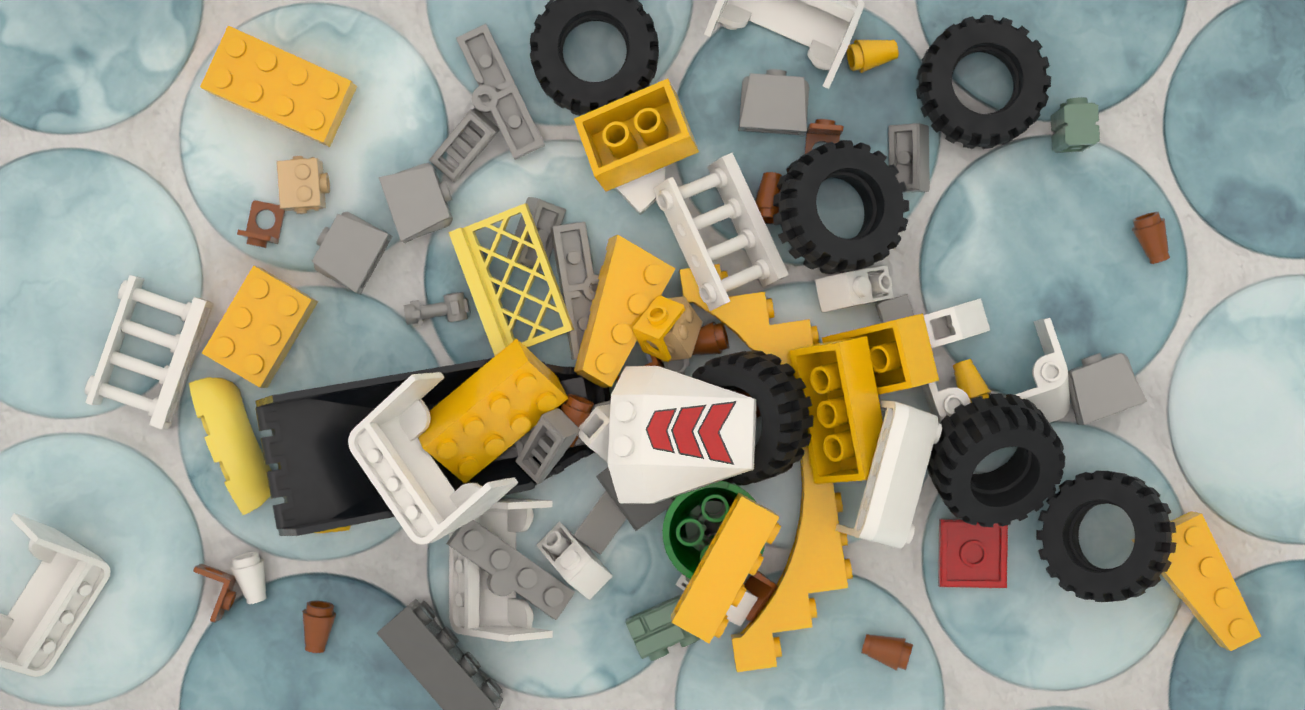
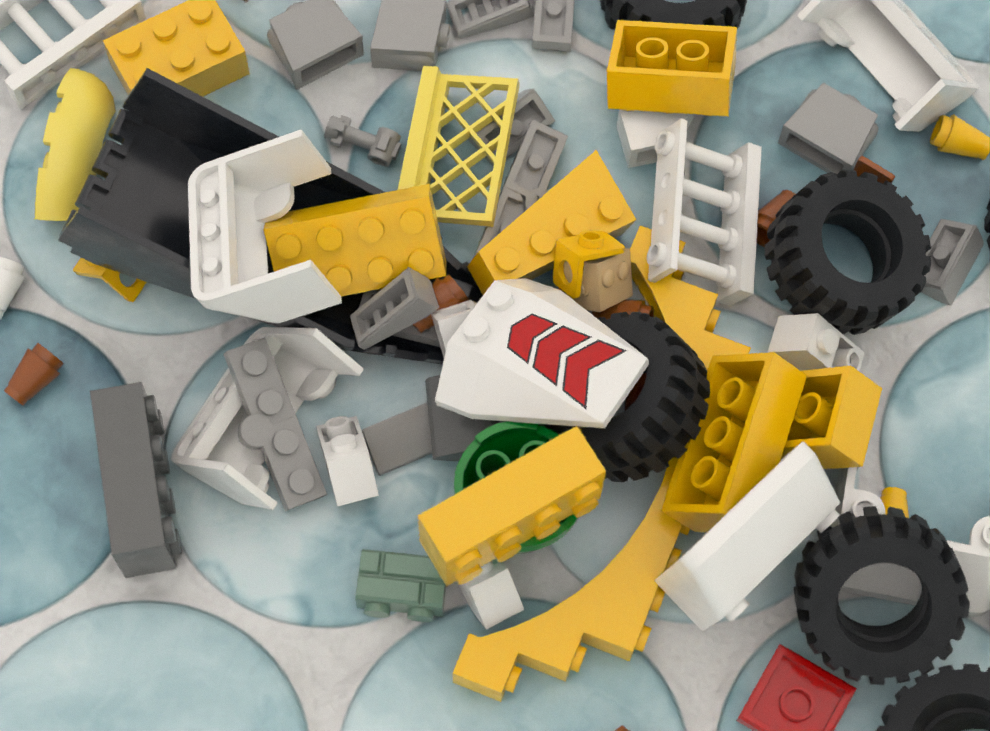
camera: 25 degrees right, 20 degrees down
(763, 589) = (535, 600): dark orange bracket -> none
(956, 323) = (908, 442): white slope -> none

